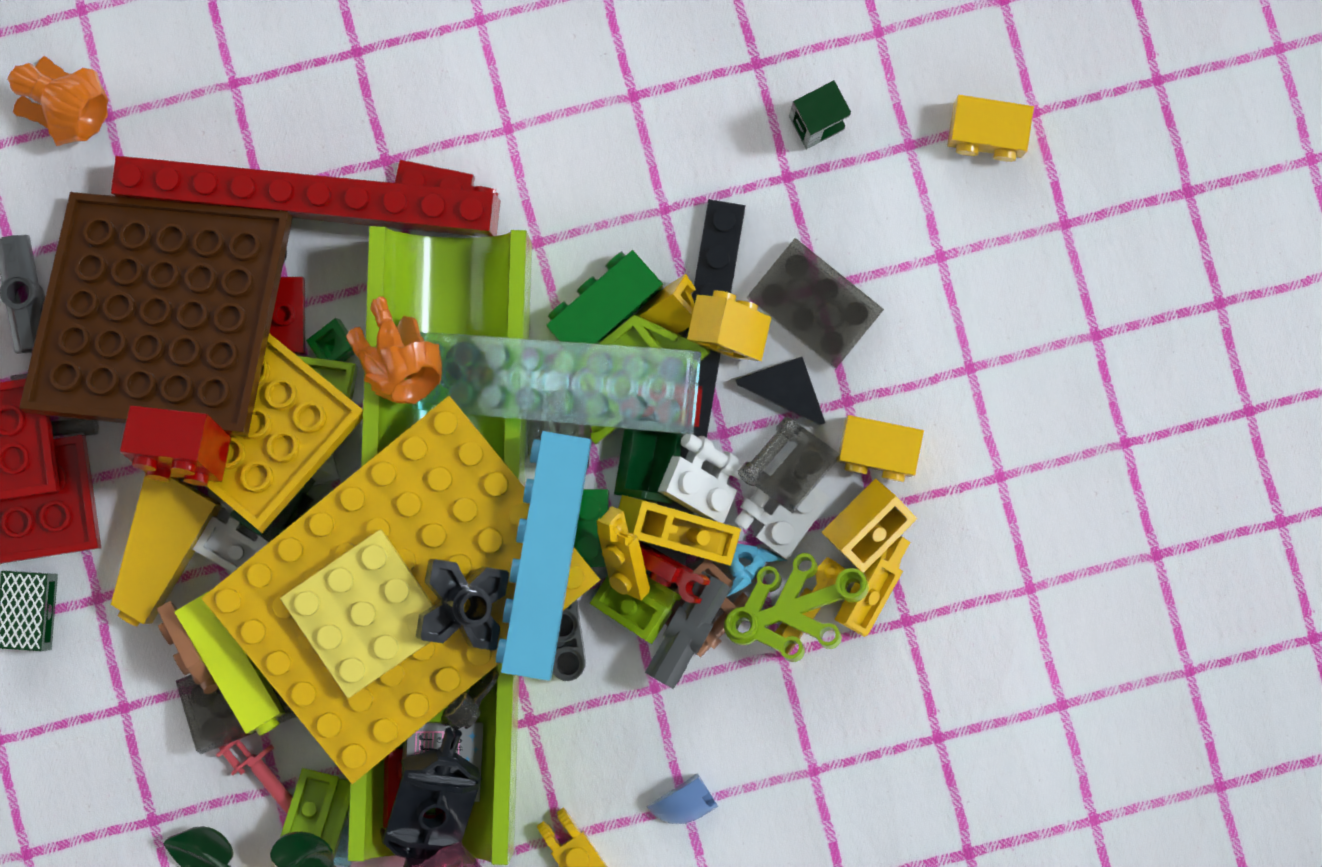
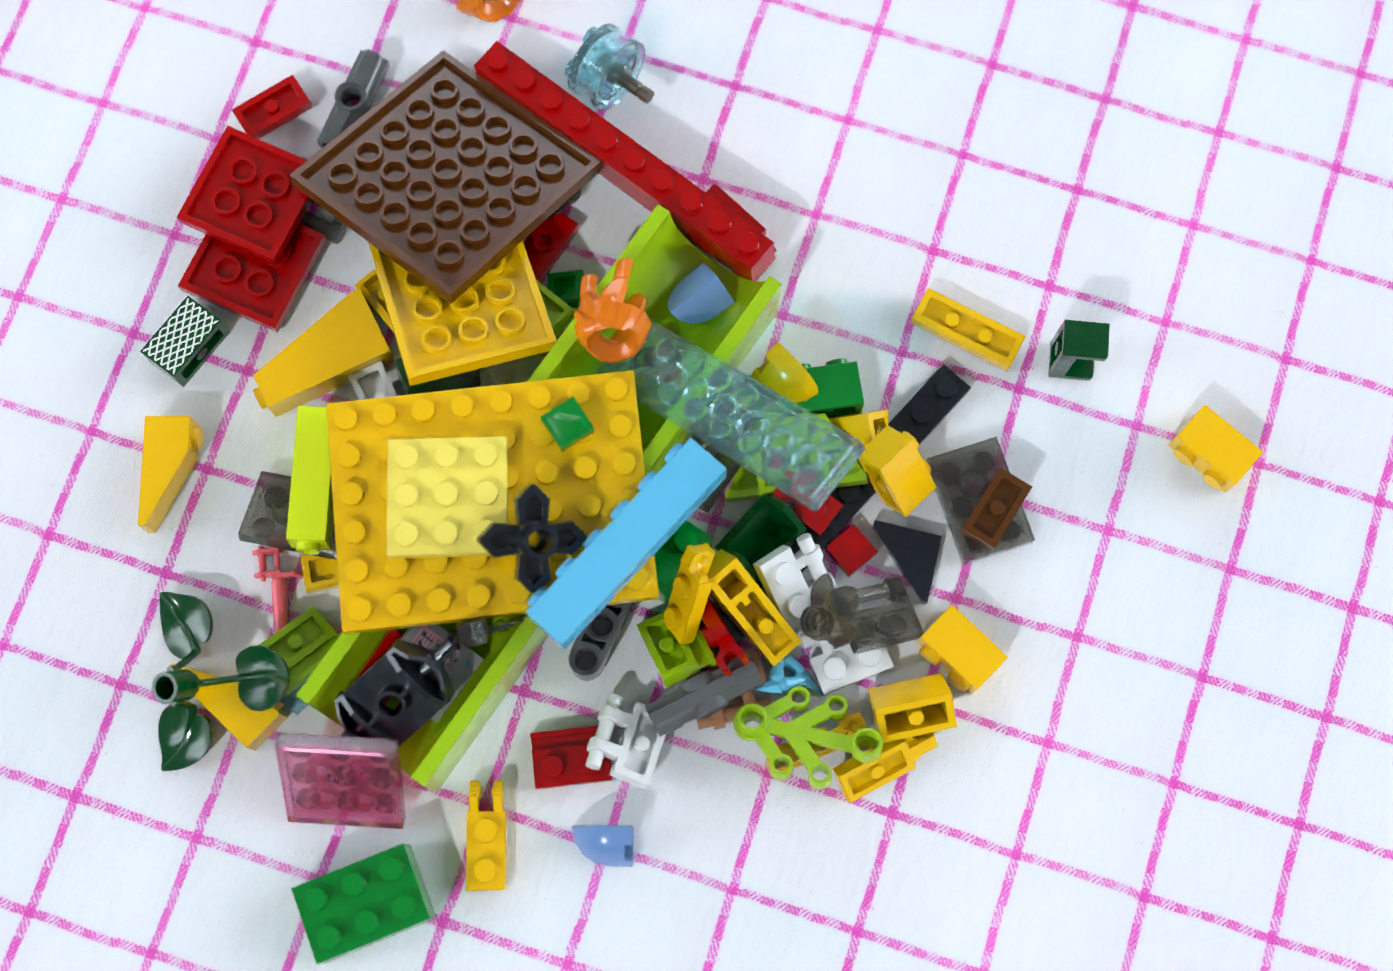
camera: 30 degrees right, 10 degrees down
(87, 727) = (167, 461): none -> yellow slope
(175, 445) = (389, 269): red brick -> none
(187, 656) = (283, 449): nougat plate -> none
(234, 116) = (607, 67): none -> clear light blue wheel
(288, 736) = (319, 573): none -> yellow tile
(425, 483) = (567, 424): none -> green tile
(456, 282) = (699, 297): none -> medium blue brick
(579, 308) = (785, 375): none -> yellow brick
(607, 750) = (561, 758): none -> red plate
(660, 708) = (638, 748): none -> white plate
(710, 153) = (967, 329): none -> yellow plate
(731, 418) = (851, 550): none -> red tile
(751, 490) = (830, 612): none -> clear smoke plate
(835, 305) = (996, 509): none -> reddish brown plate

